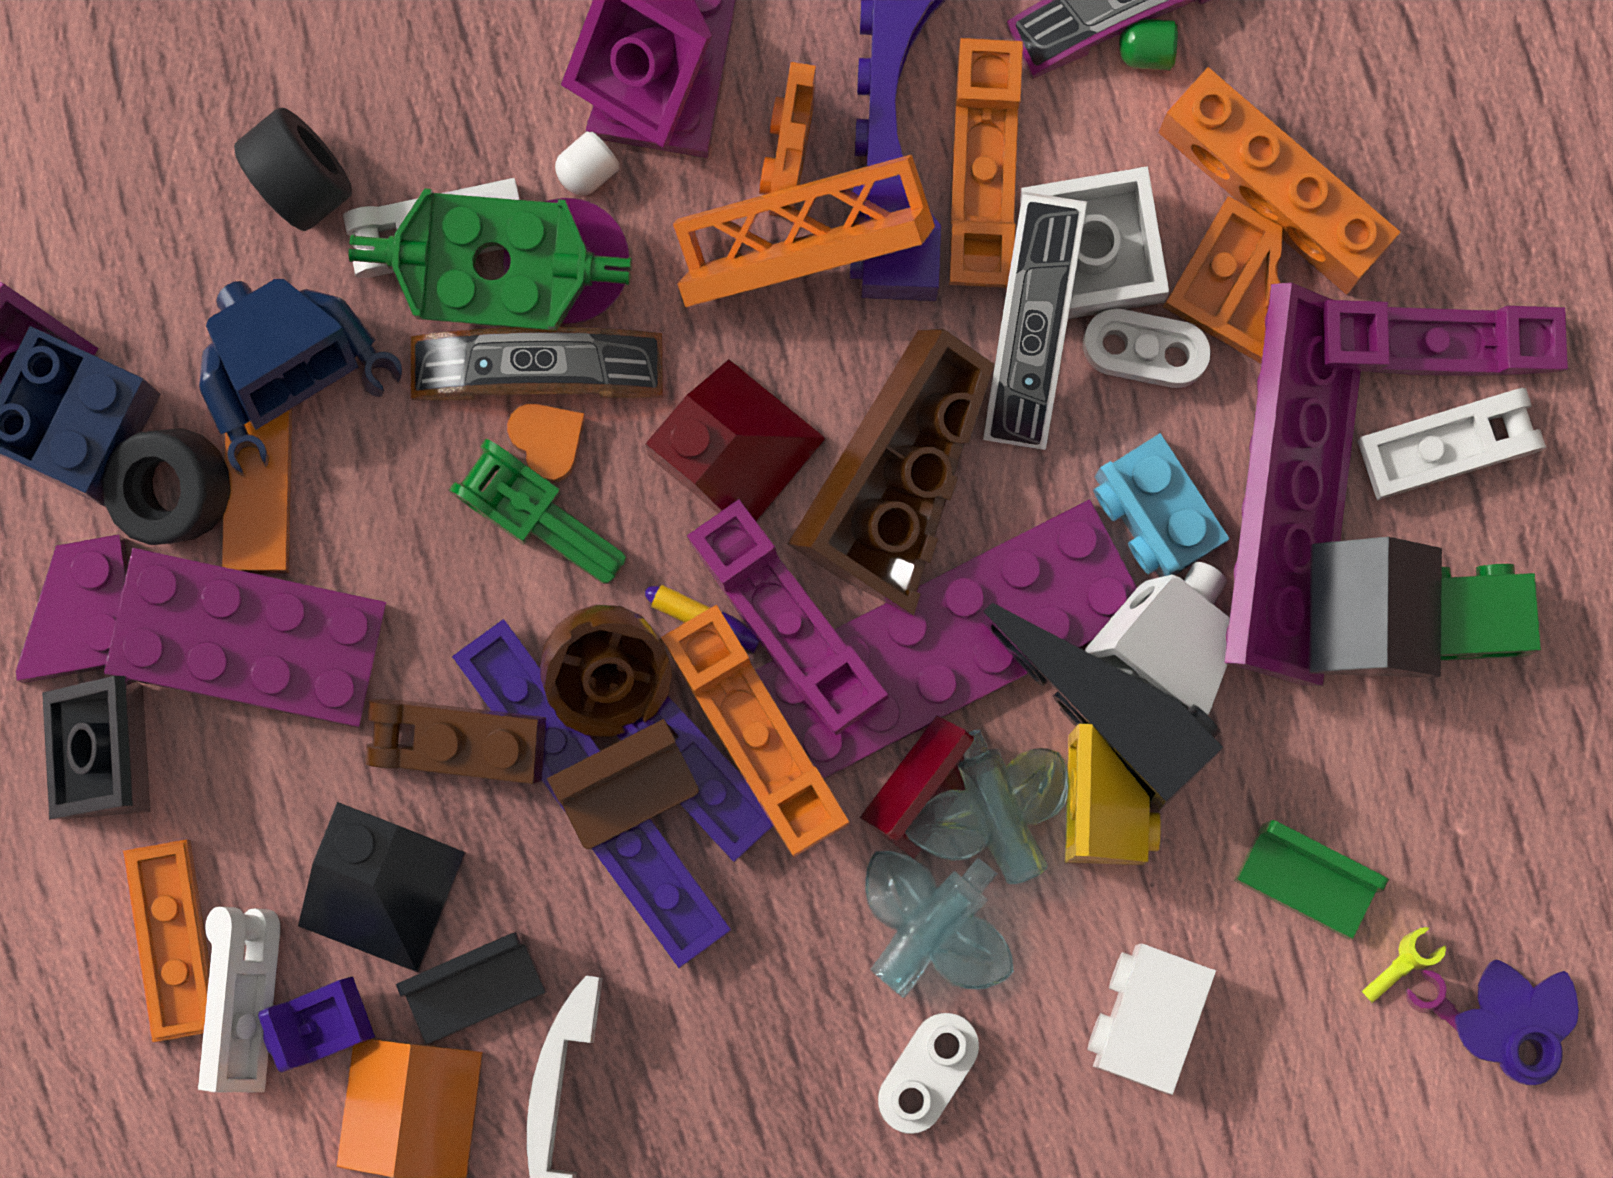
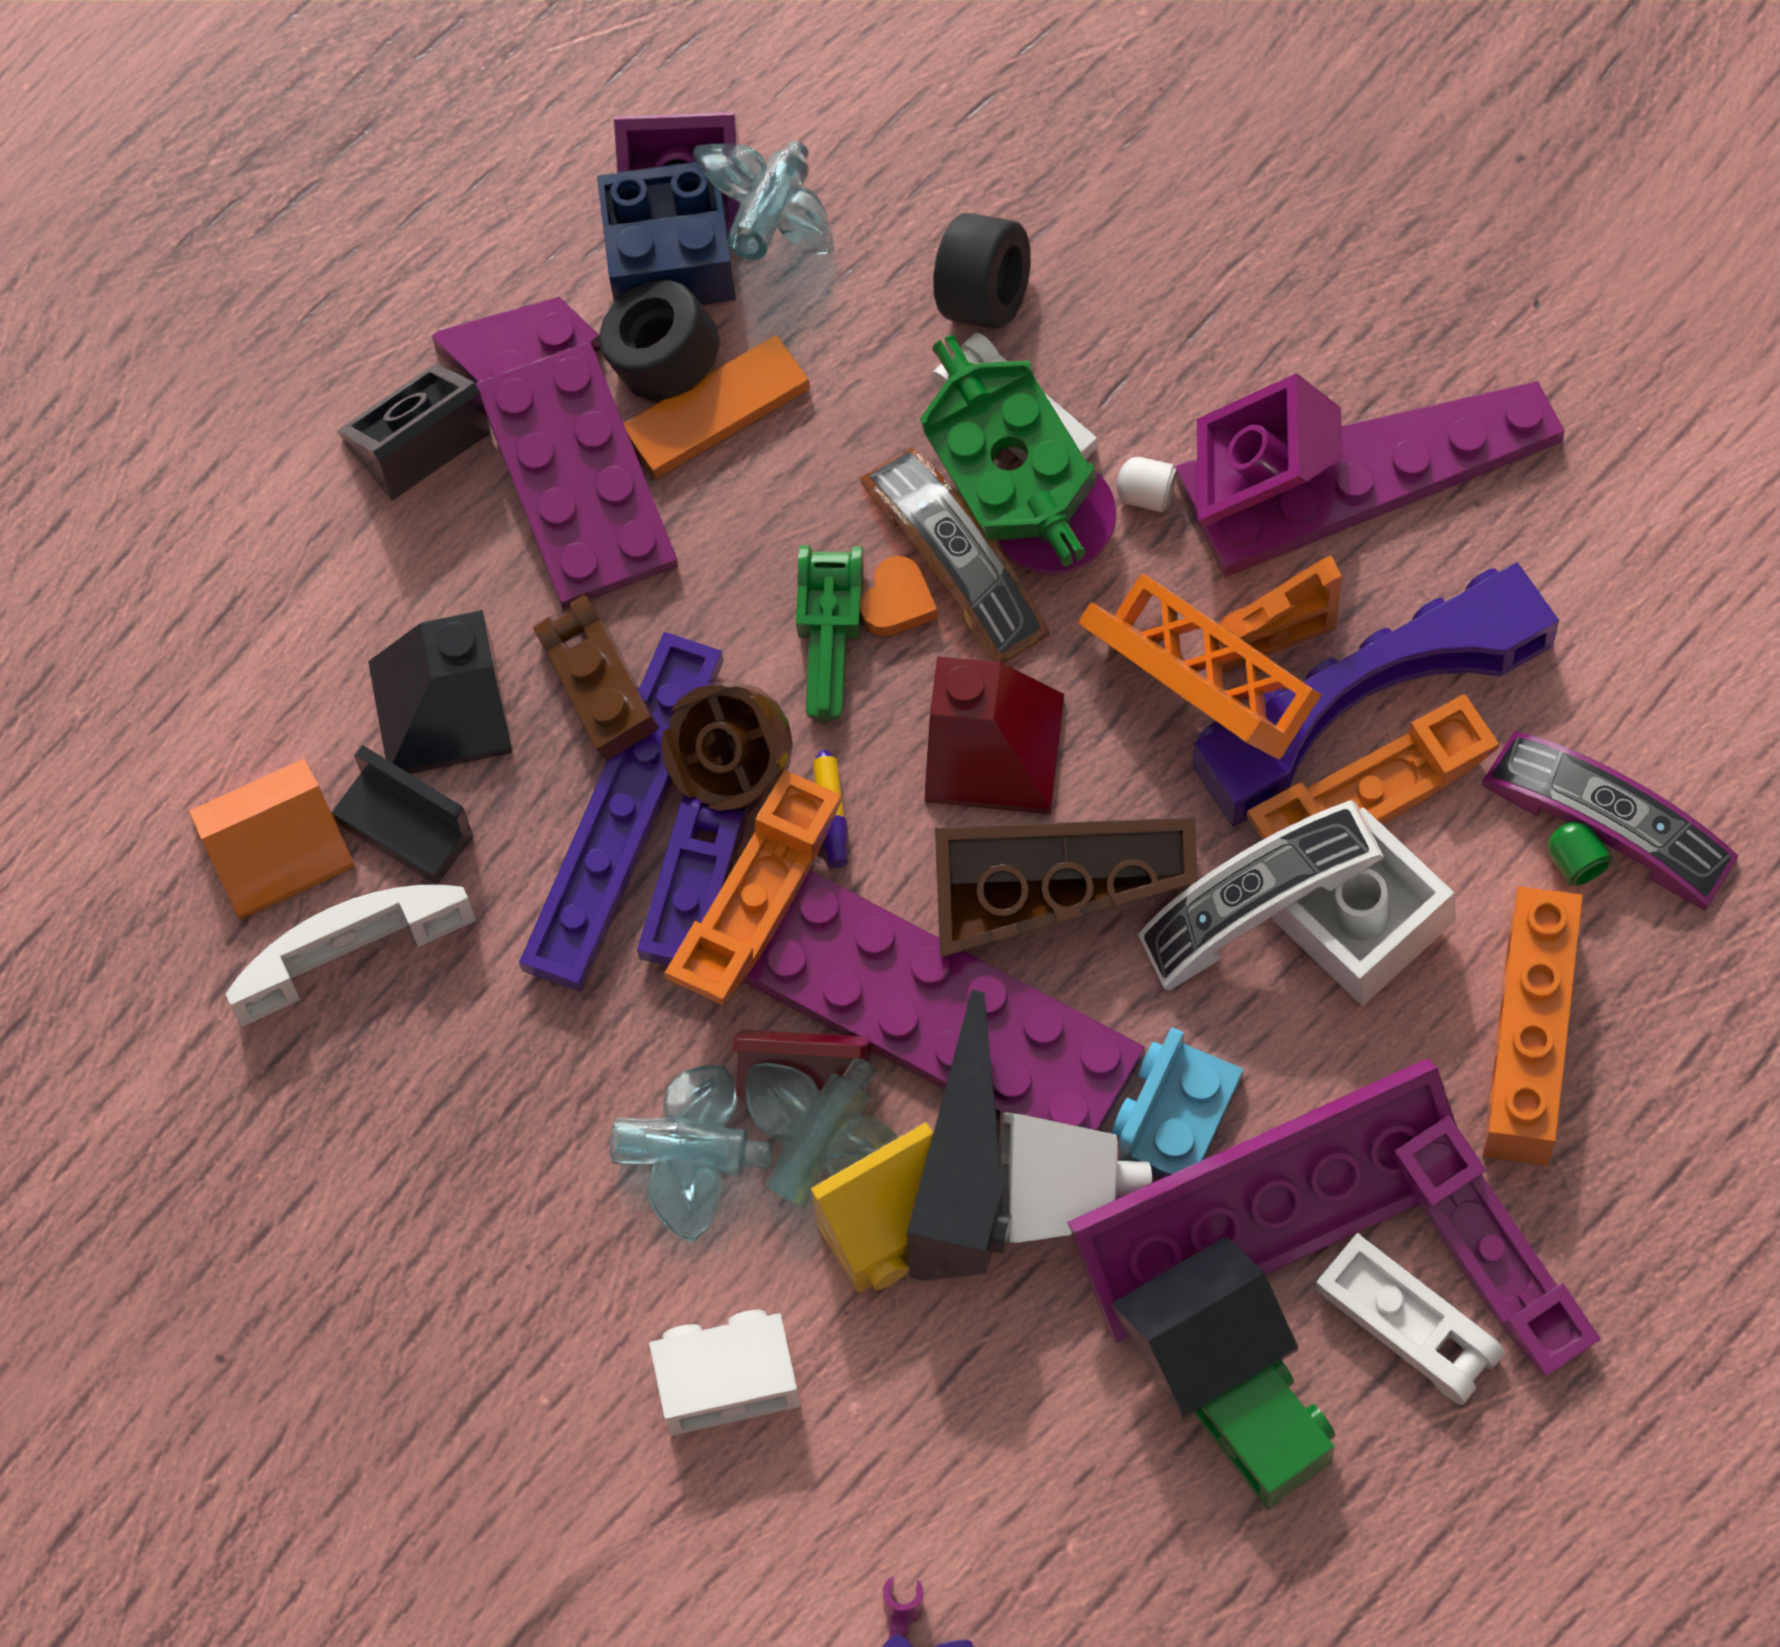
camera: 65 degrees right, 15 degrees down
(95, 304) = (768, 197): none -> clear light blue plant
(169, 937) = (295, 577): orange tile -> none
(233, 1040) = (276, 649): white plate -> none
(278, 351) = (821, 346): dark blue torso -> none
(315, 1025) = (291, 717): dark purple bracket -> none
(624, 785) = (644, 818): reddish brown panel -> none
(786, 619) = (870, 856): magenta slope -> none
(929, 1073) = (559, 1227): white plate -> none
(1145, 347) = (1310, 1015): white plate -> none
(1231, 278) = (1445, 1028): orange wing -> none
(1309, 878) = (935, 1436): green panel -> none
(1403, 964) = (915, 1565): neon yellow hand -> none

